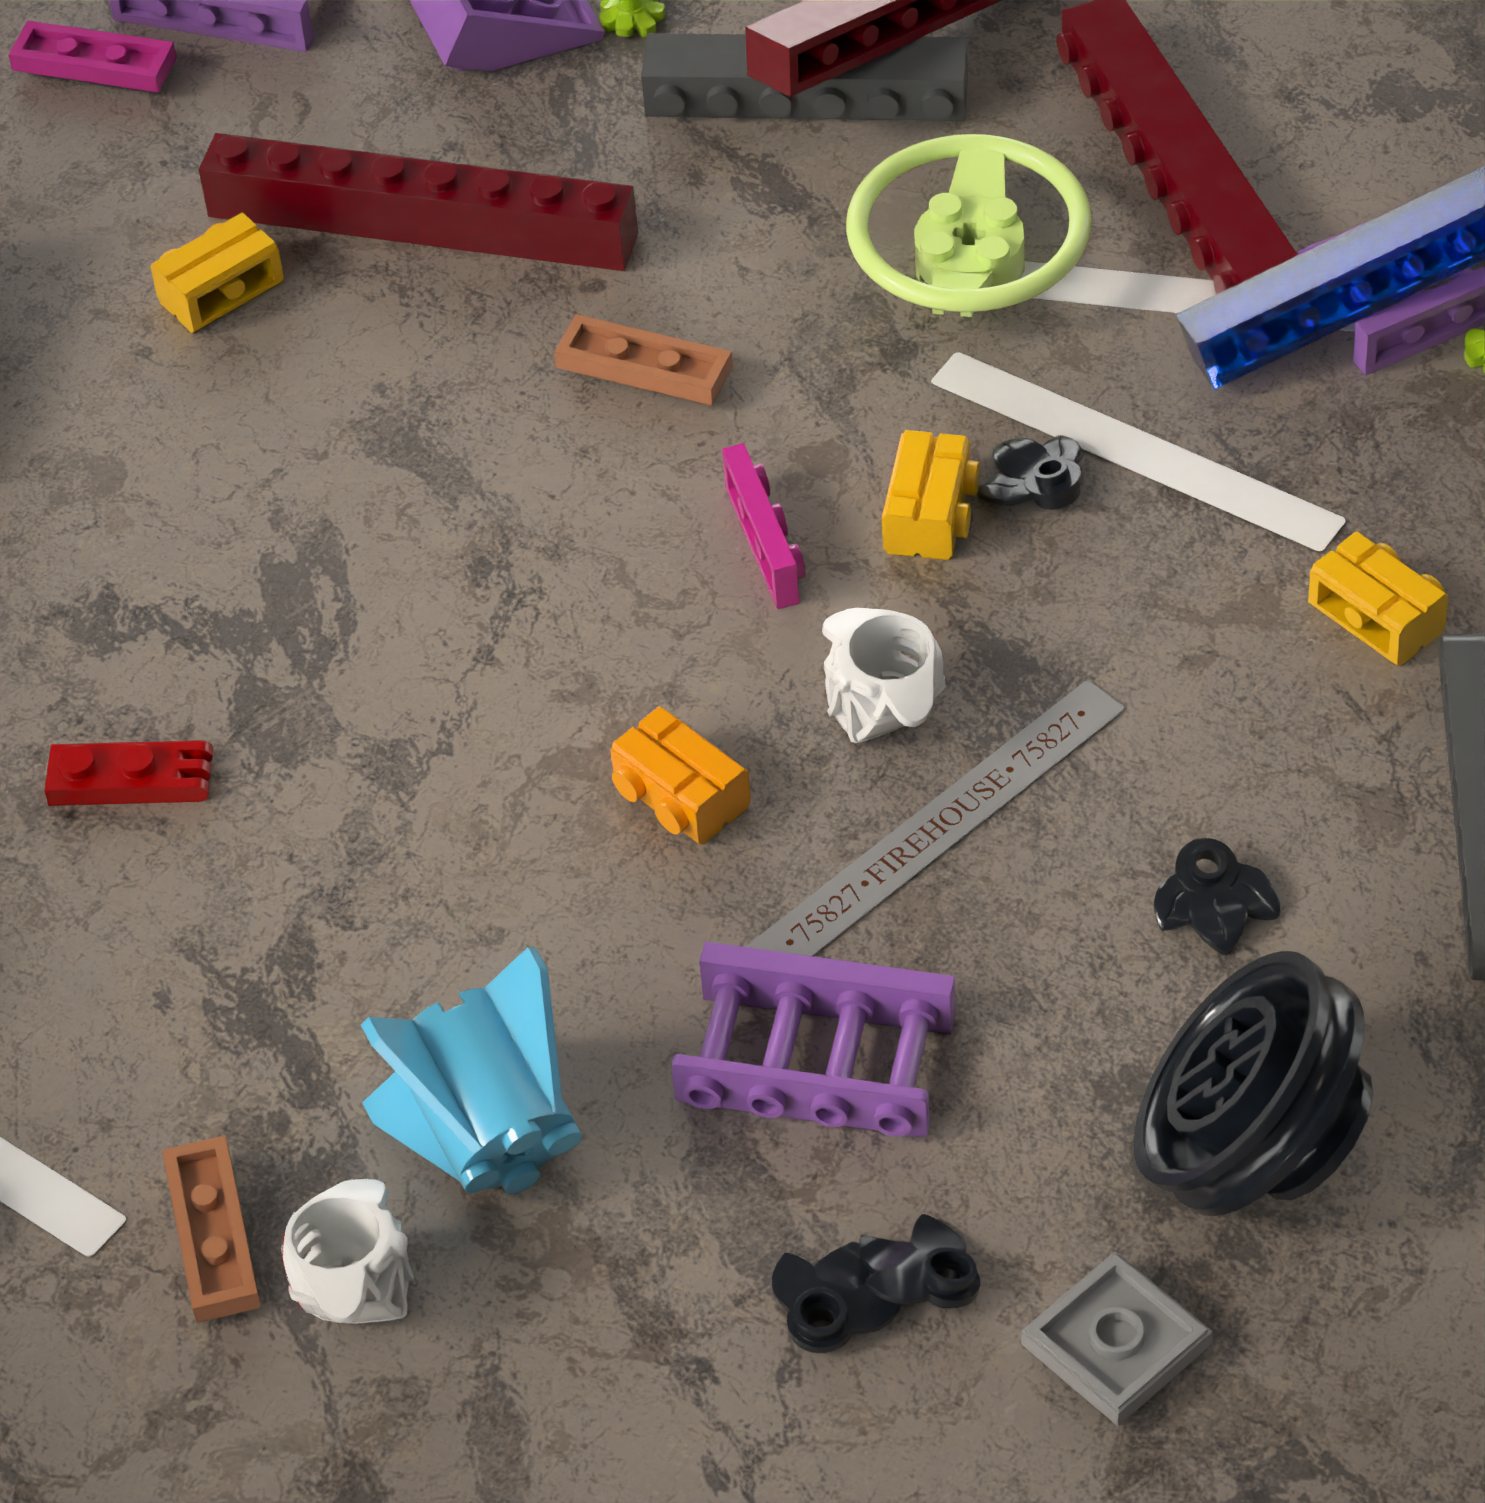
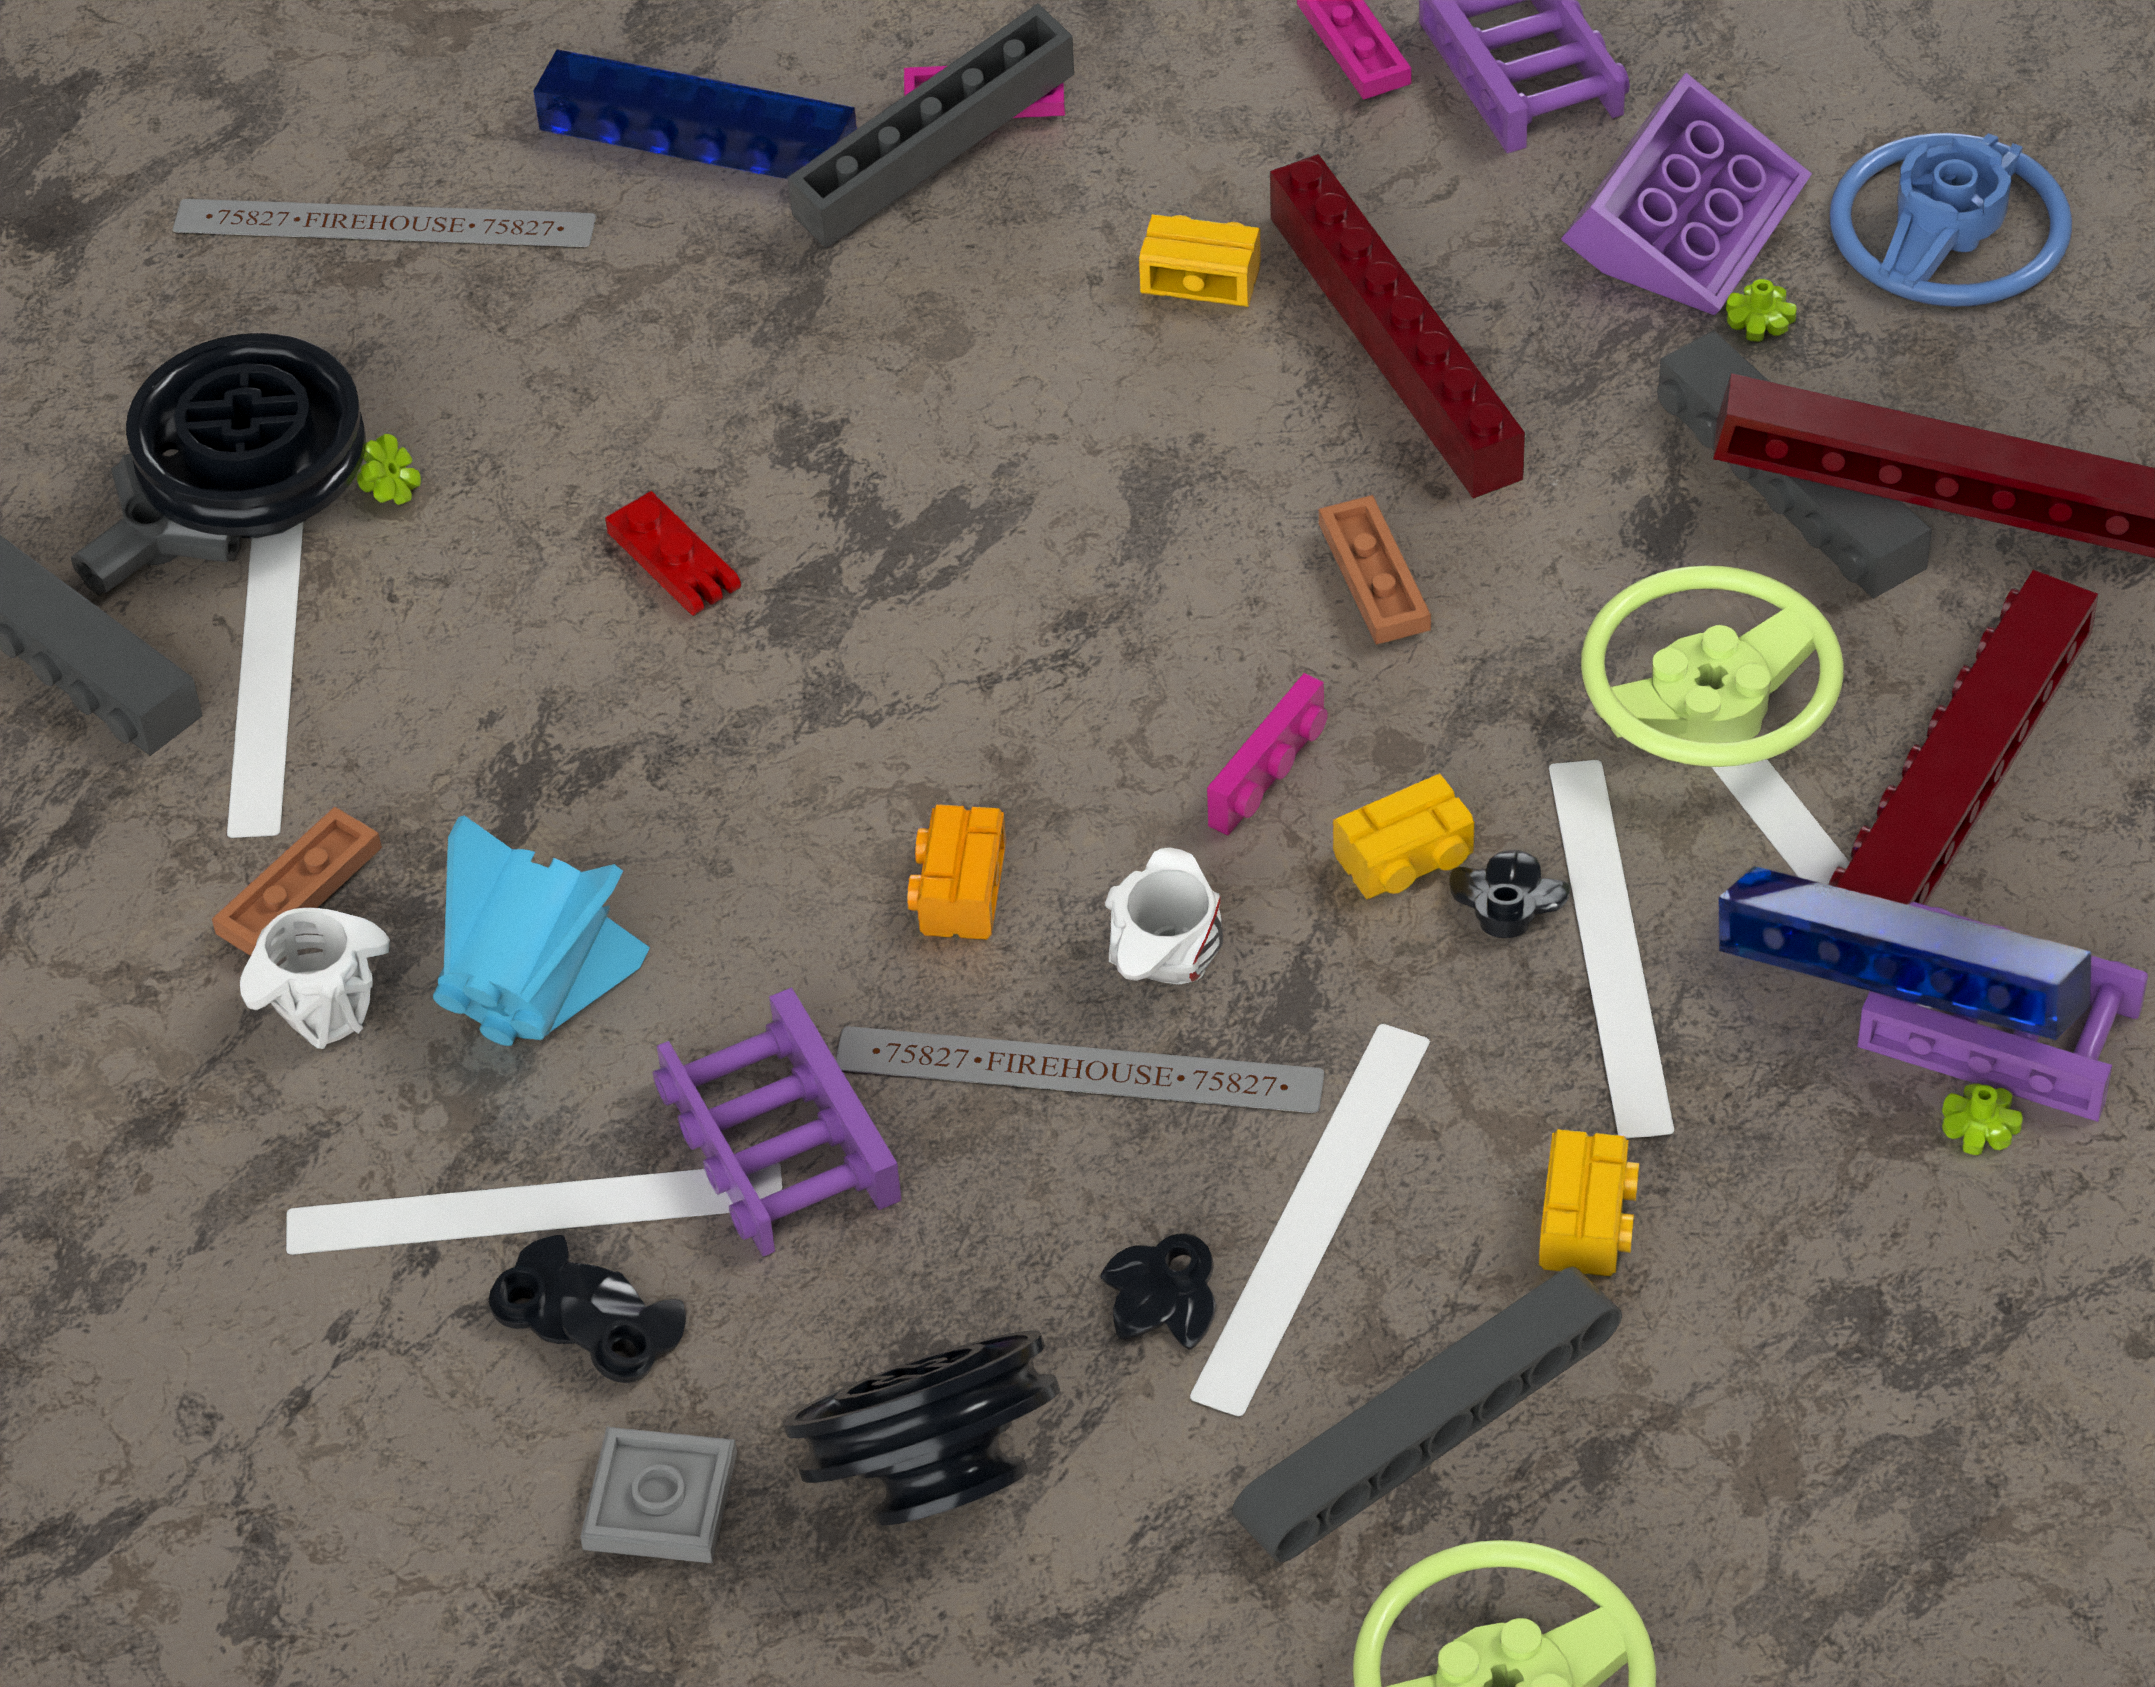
camera: 50 degrees right, 0 degrees up
(701, 1291) = (512, 1210): none -> white sticker
(1225, 775) = (1309, 1221): none -> white sticker

